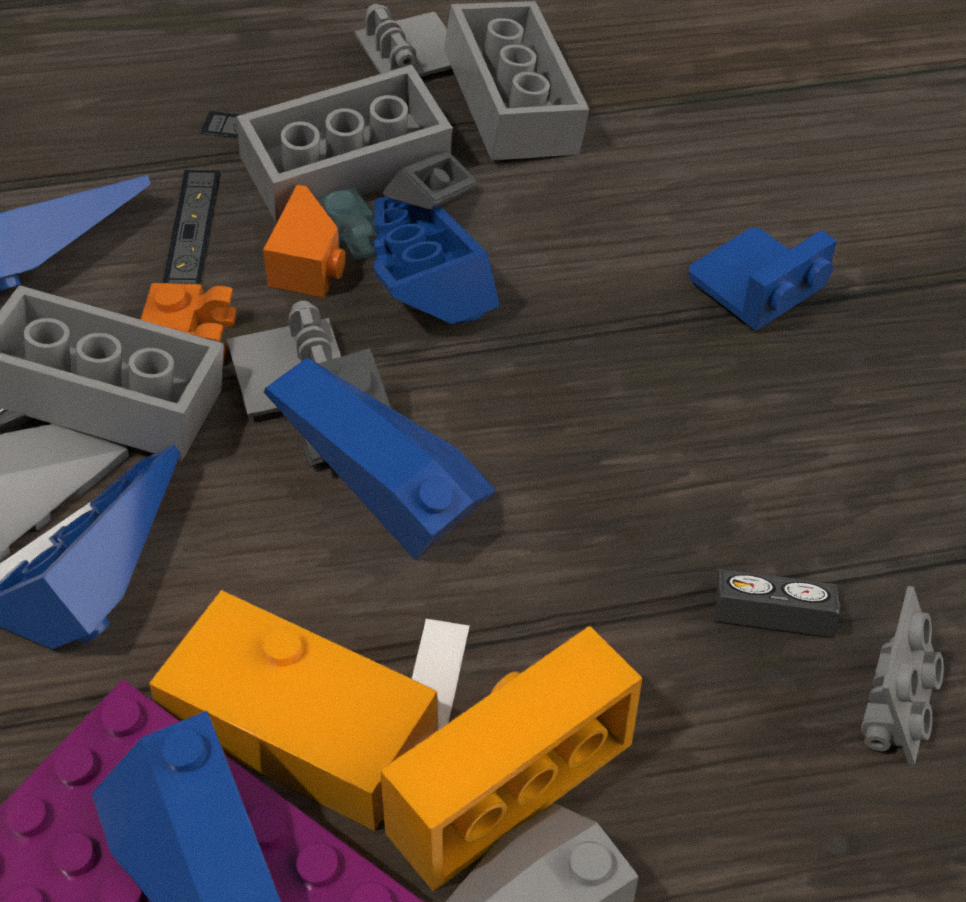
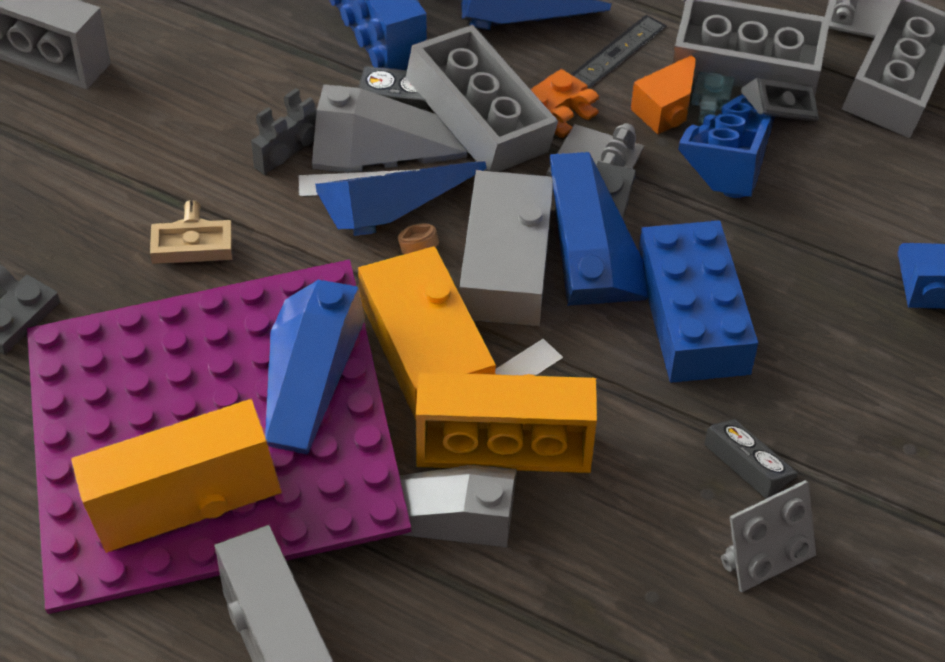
camera: 40 degrees right, 0 degrees up
(172, 595) = (417, 238): none -> medium nougat tile
(296, 532) = (507, 247): none -> light grey brick
(564, 460) = (697, 302): none -> blue brick

